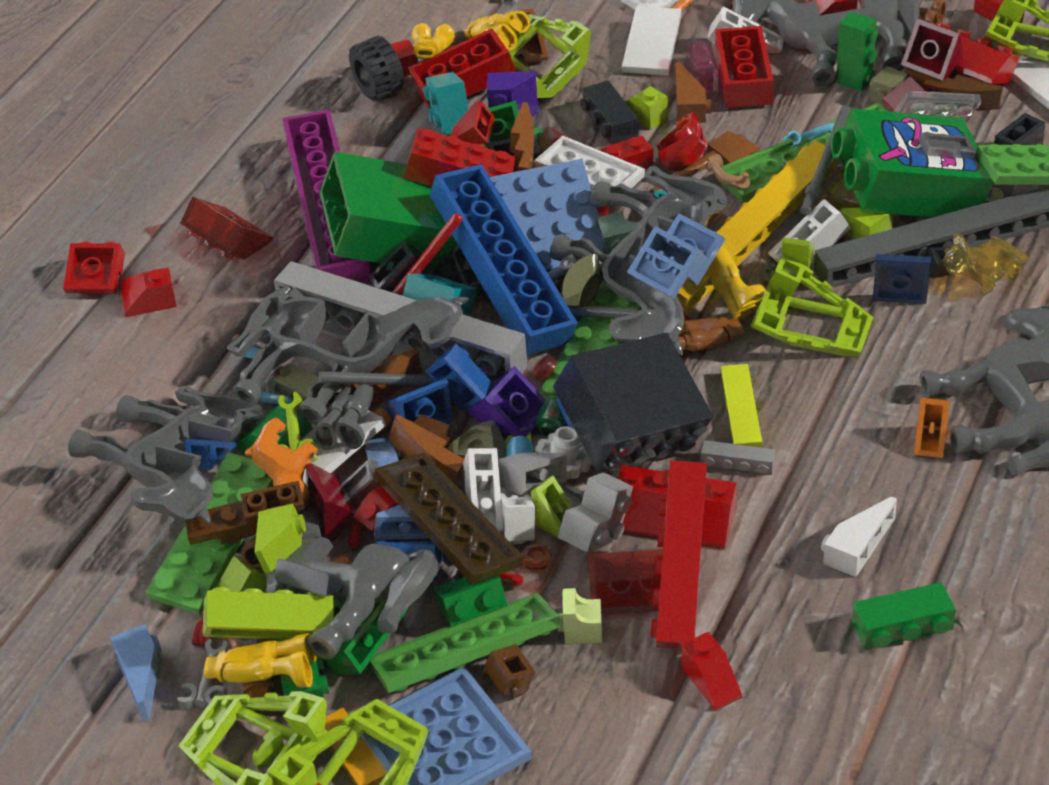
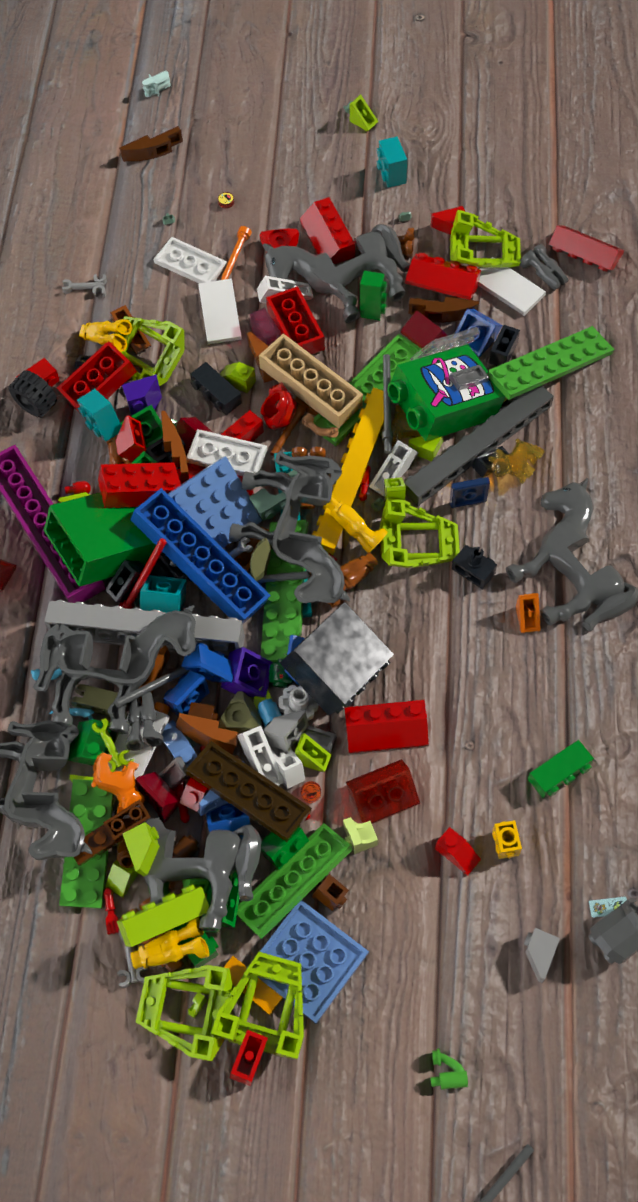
camera: 20 degrees left, 20 degrees up
(140, 665) = (82, 968): medium blue slope -> none
(211, 451) = (52, 776): blue slope -> none
(306, 578) = (180, 881): slope -> none
(427, 46) = (63, 364): yellow piece -> none
(544, 368) = (257, 632): clear red tile -> none
(599, 515) = (344, 754): light grey brick -> none
(676, 256) = (323, 527): medium blue bracket -> none
(681, 554) = (414, 776): red brick -> none
(735, 119) = (311, 380): none -> tan brick
(738, 457) = (412, 670): light grey piece -> none
(741, 405) = (398, 626): neon yellow tile -> none
(762, 249) = (365, 484): none -> red piece
(786, 673) = (506, 839): none -> yellow head
(809, 135) = (372, 371): medium azure piece -> none
(858, 537) = (510, 717): white slope -> none
(875, 362) = (474, 566): none -> black brick
(885, 82) = (399, 315): olive brick -> none
(933, 50) = (425, 284): dark red slope -> none
(989, 118) = (487, 328): none -> blue slope

